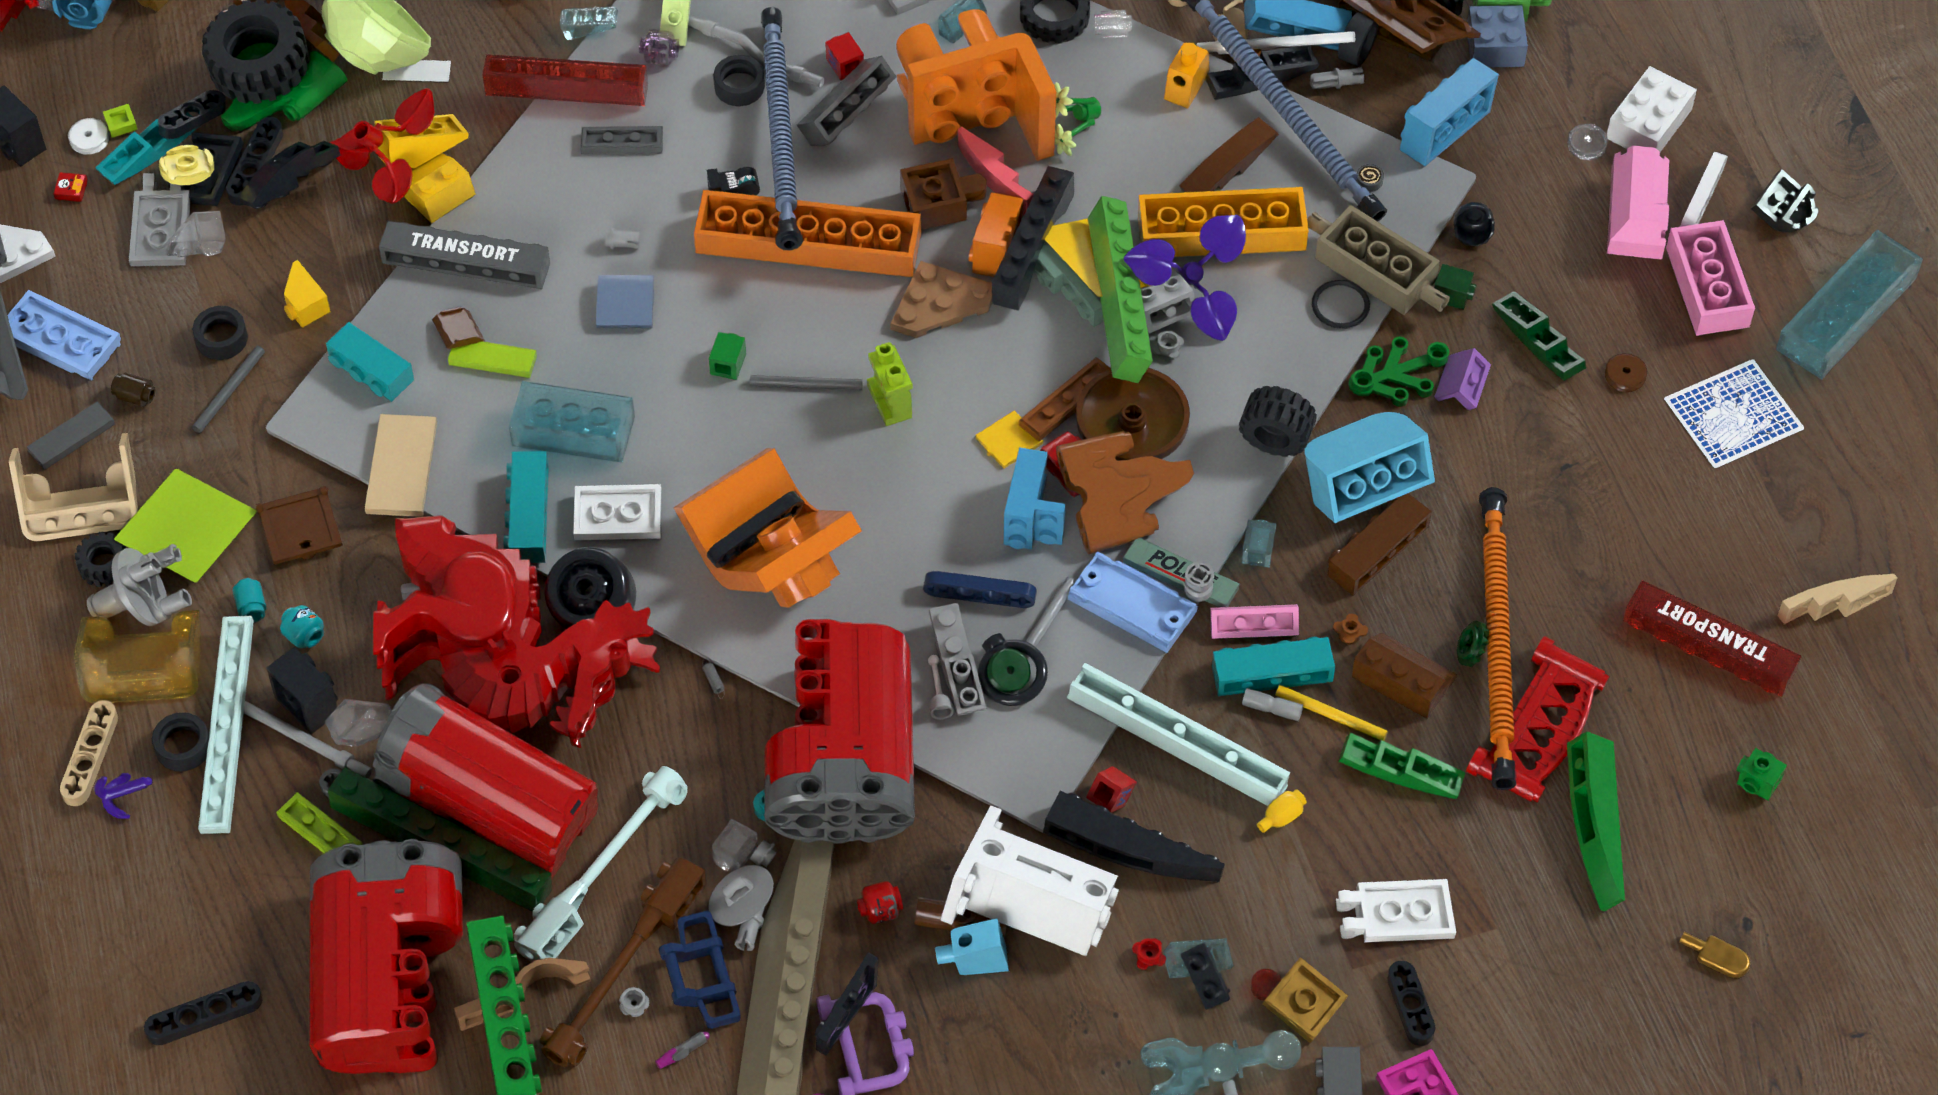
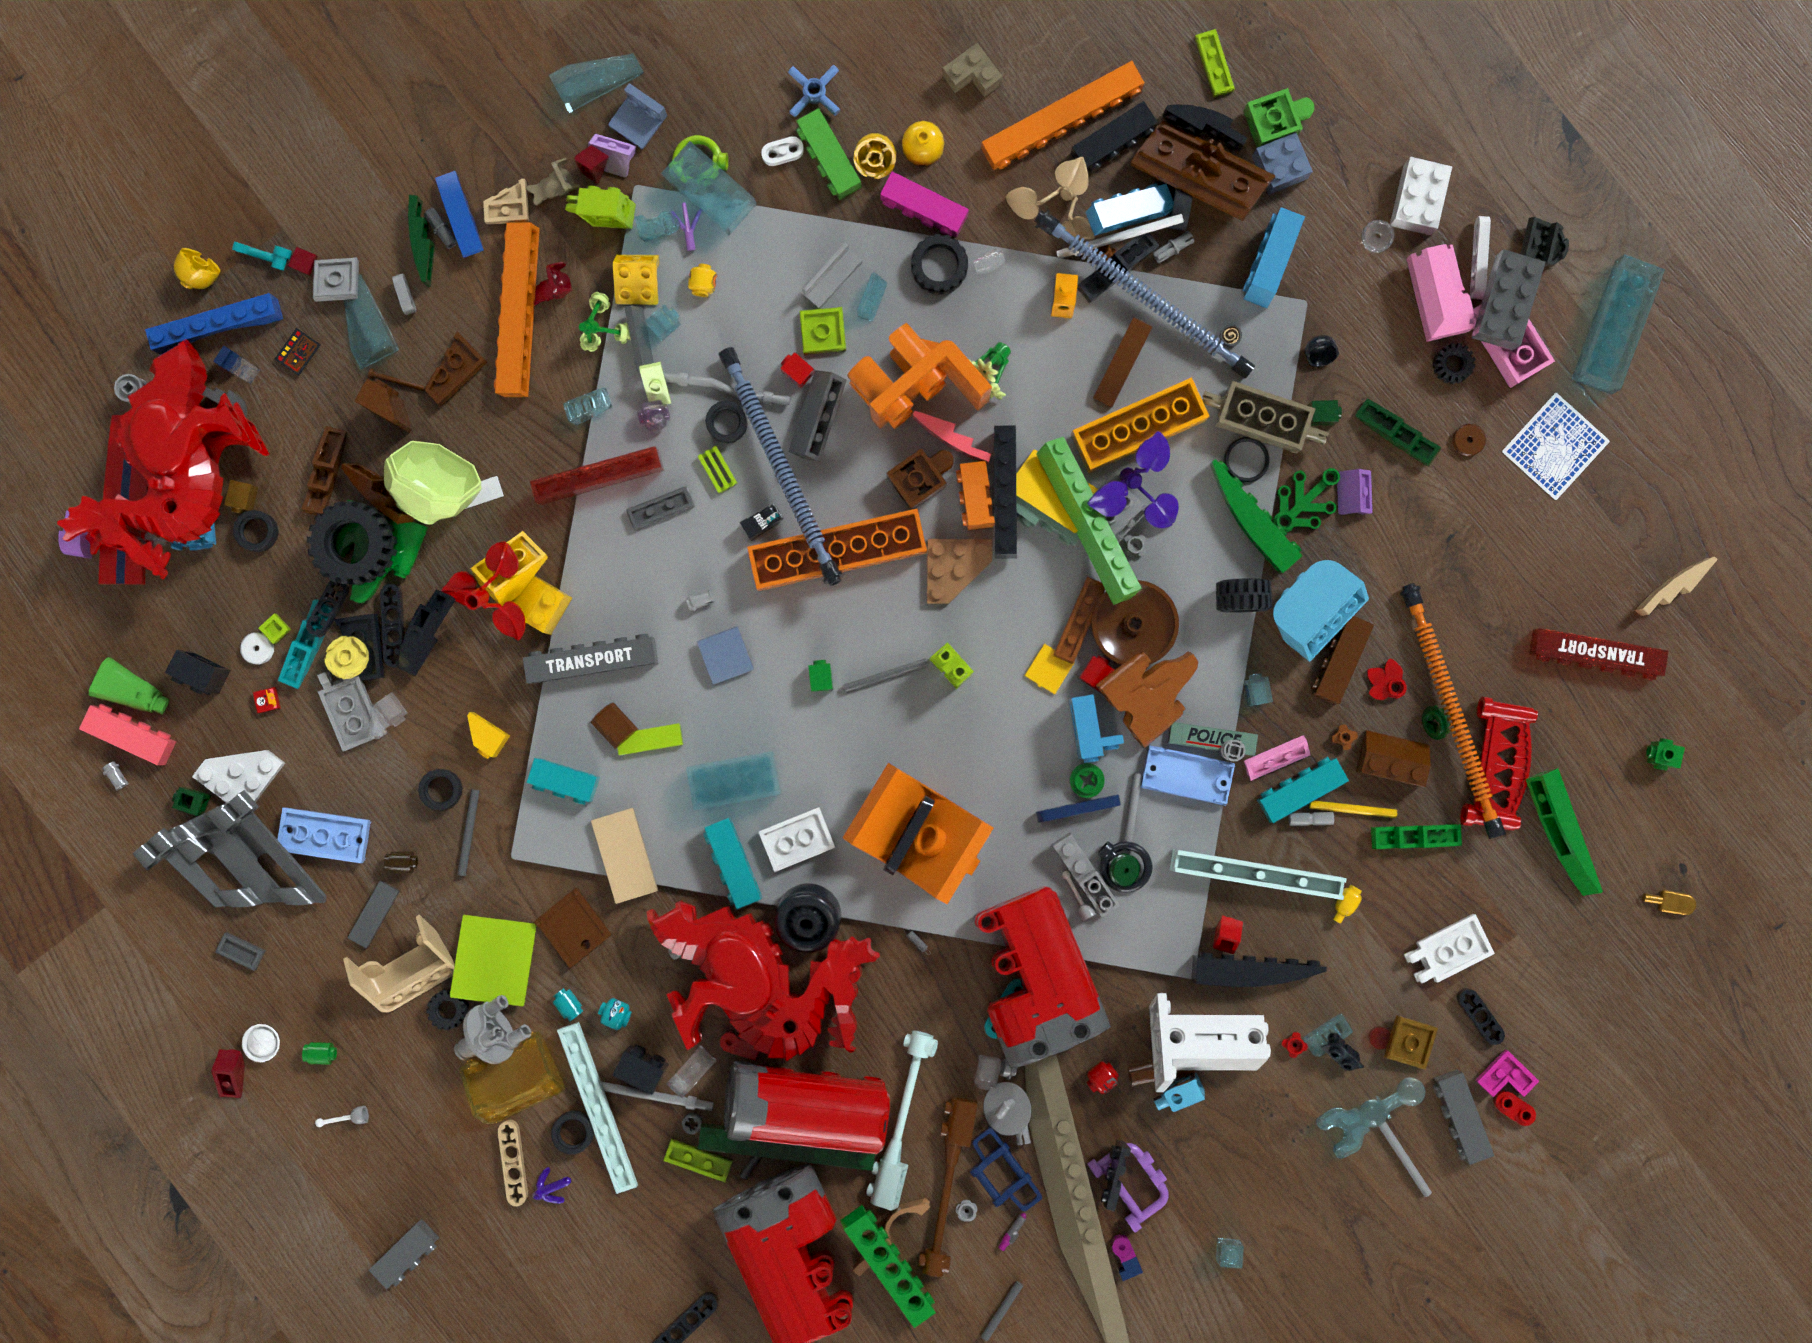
camera: 15 degrees left, 30 degrees up
(148, 10) = (239, 526): none -> black tyre
(703, 106) = (708, 453): none -> lime tile
(884, 29) = (822, 330): none -> lime tile
(1005, 555) = (1089, 790): none -> green gear
(1325, 365) = (1254, 522): none -> green slope
(1424, 587) = (1384, 679): none -> red plate
(1636, 275) = (1465, 357): none -> black tyre
(1714, 223) = (1508, 299): none -> dark grey brick

